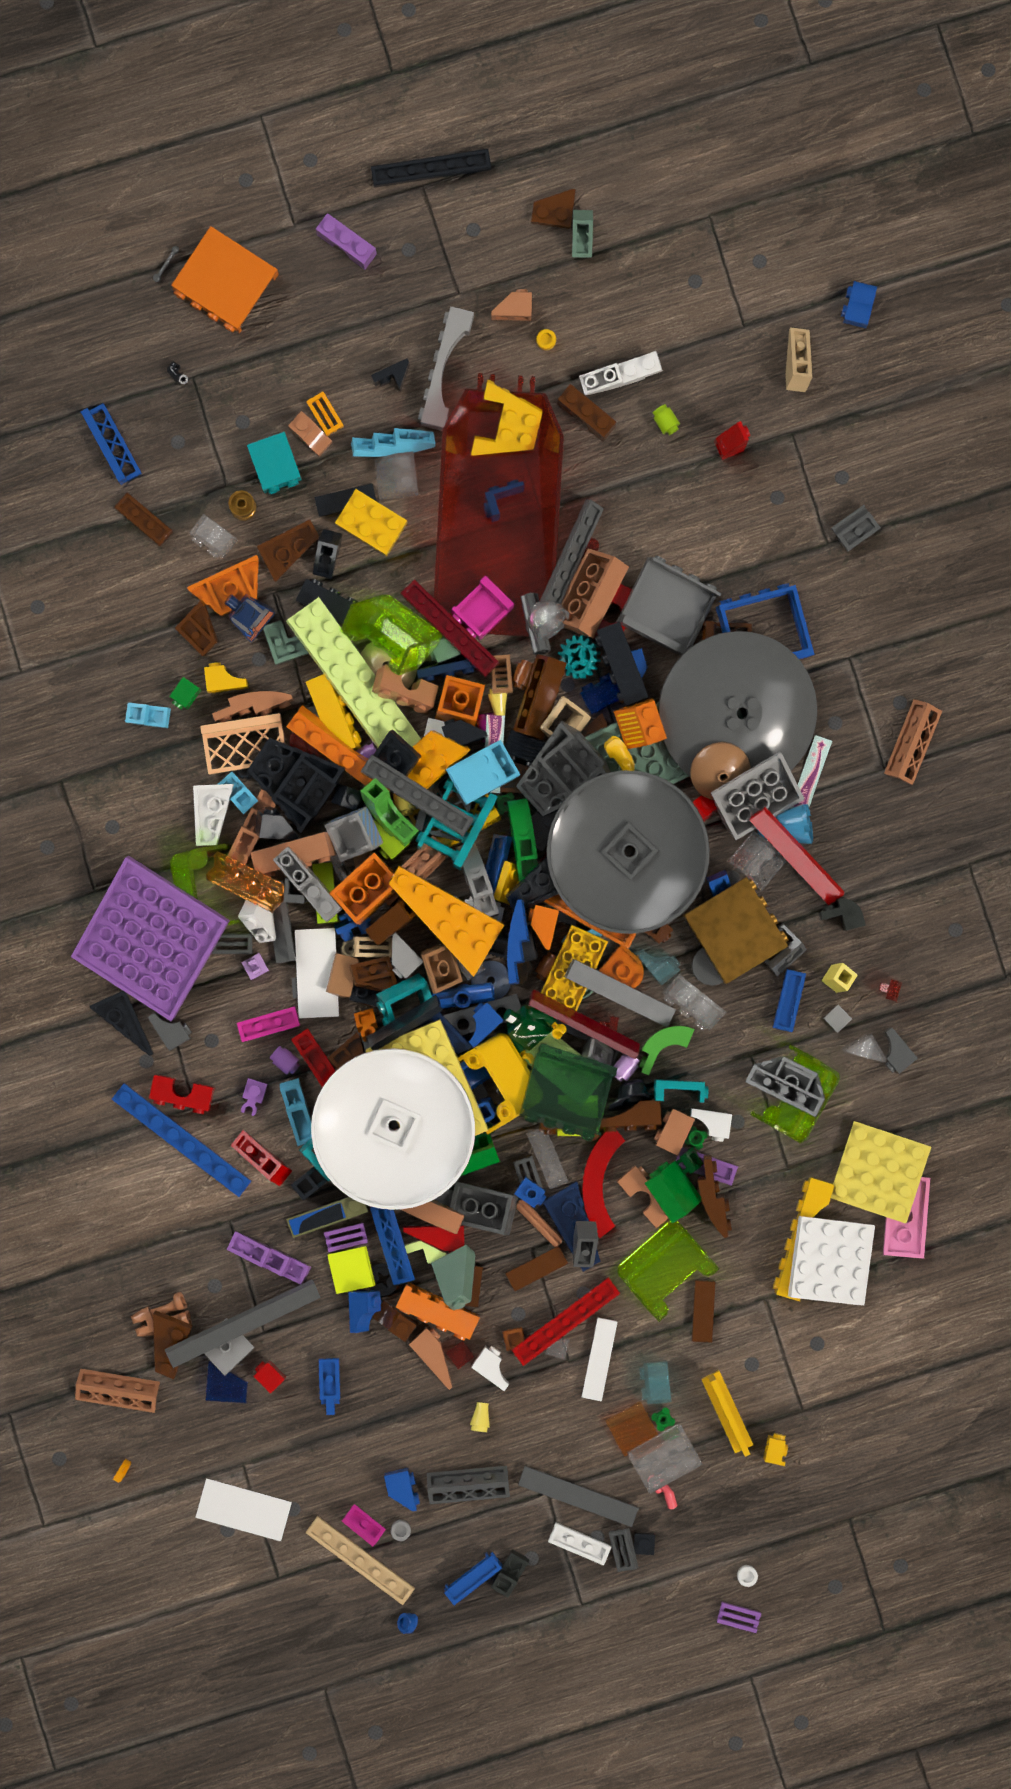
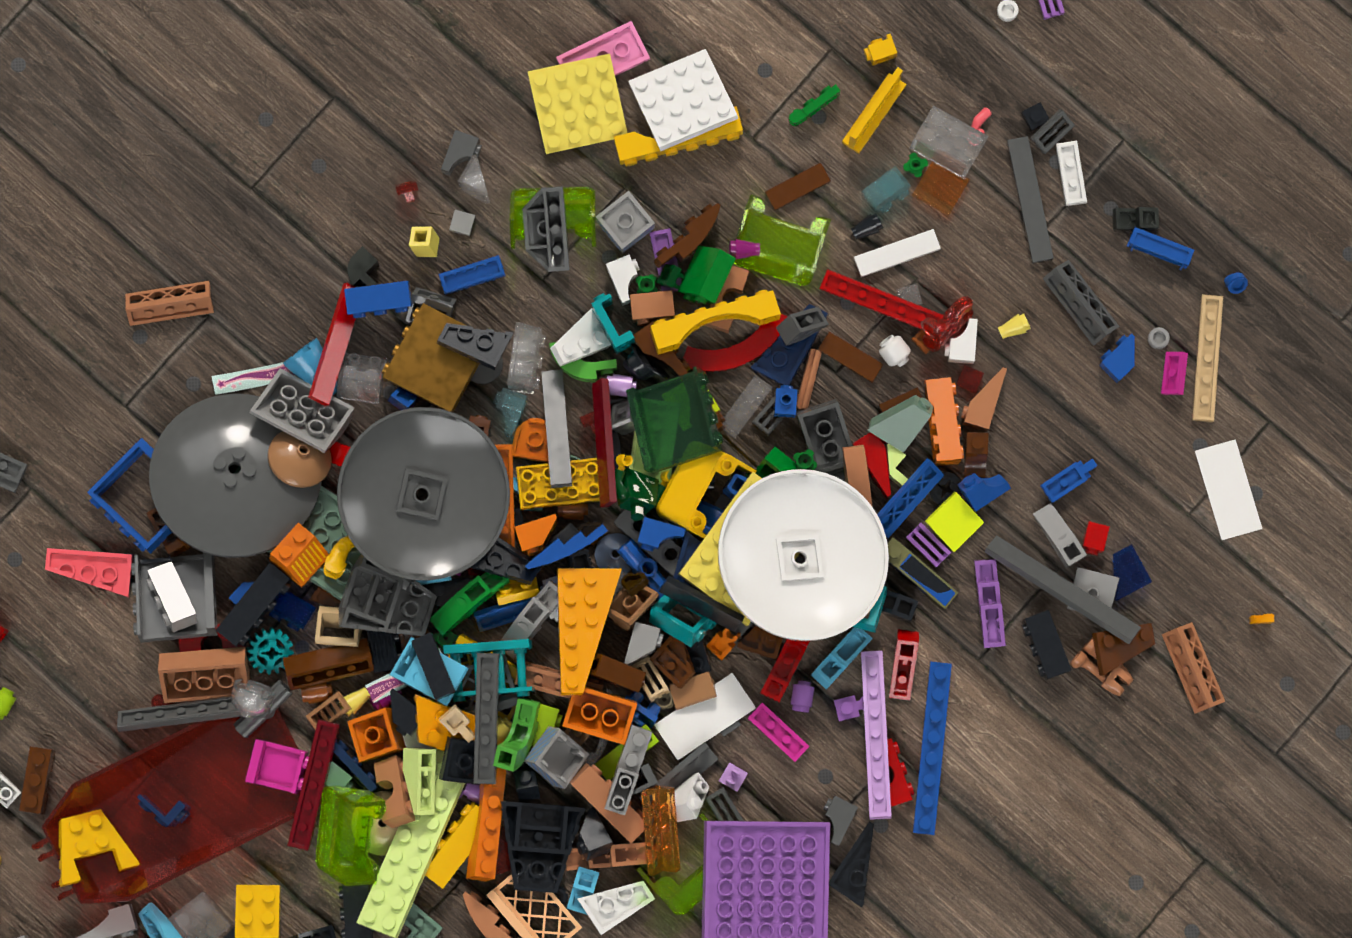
camera: 120 degrees left, 5 degrees down
(207, 1282) = (1046, 645): none -> black brick
(216, 1100) = (876, 735): none -> lavender plate
(288, 1348) = (1059, 535): none -> light grey slope
(402, 715) = (419, 774): none -> yellowish green slope
(428, 769) = (456, 721): none -> tan plate
(456, 980) = (634, 582): none -> dark brown tile
(477, 1178) = (808, 455): none -> green plate
(483, 777) = (433, 666): none -> black tile
(511, 1352) = (954, 318): none -> clear red piece
(519, 1307) = (894, 351): none -> white head
(619, 1215) = (755, 309): none -> yellow arch
(635, 1348) = (868, 226): none -> black cone
(668, 602) = (171, 597): none -> brick
(676, 1234) = (743, 249): none -> magenta cone
(680, 1056) = (581, 340): none -> white wing
(727, 560) = (98, 569): none -> coral wing
(727, 968) = (476, 344): none -> black wing
(757, 1151) = (625, 222): none -> light grey container
(762, 1364) = (812, 106): none -> green hinge
(813, 911) = (378, 299): none -> blue brick

